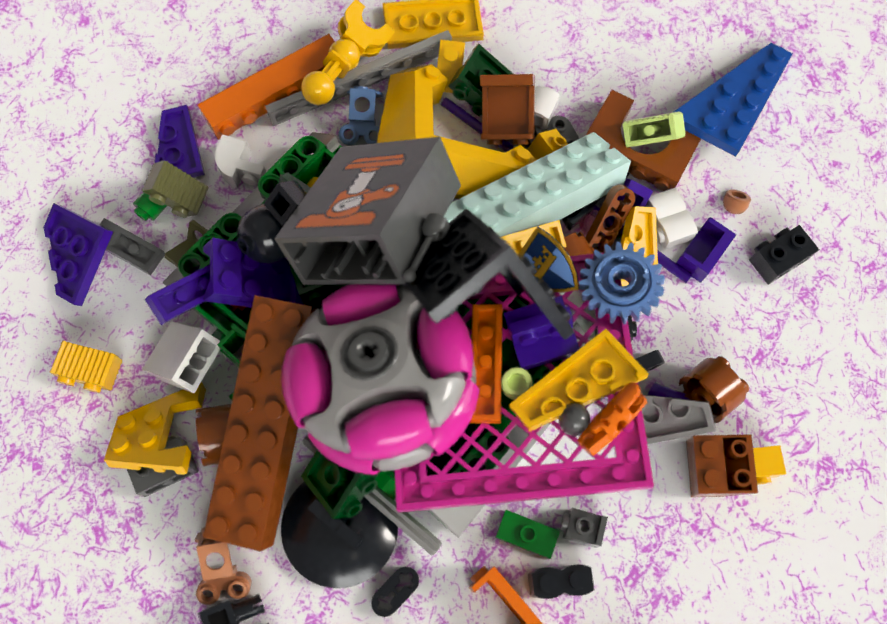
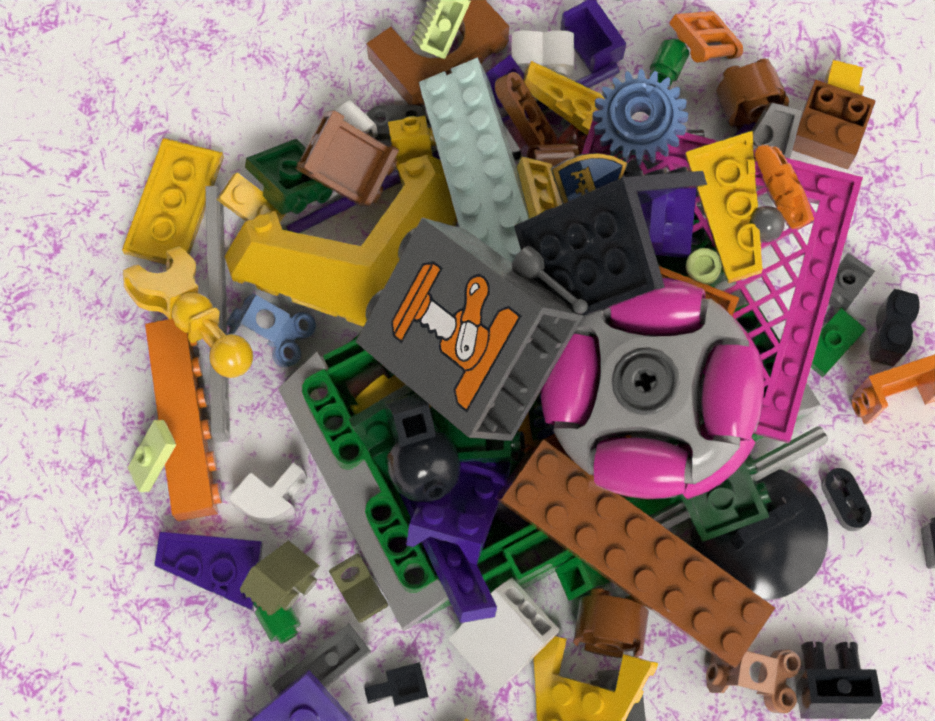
camera: 65 degrees left, 0 degrees up
(129, 304) = (403, 685): none -> black plate
(235, 75) = (151, 455): none -> yellowish green plate
(712, 315) = (670, 60): none -> green brick
(754, 329) = (702, 28): none -> orange plate

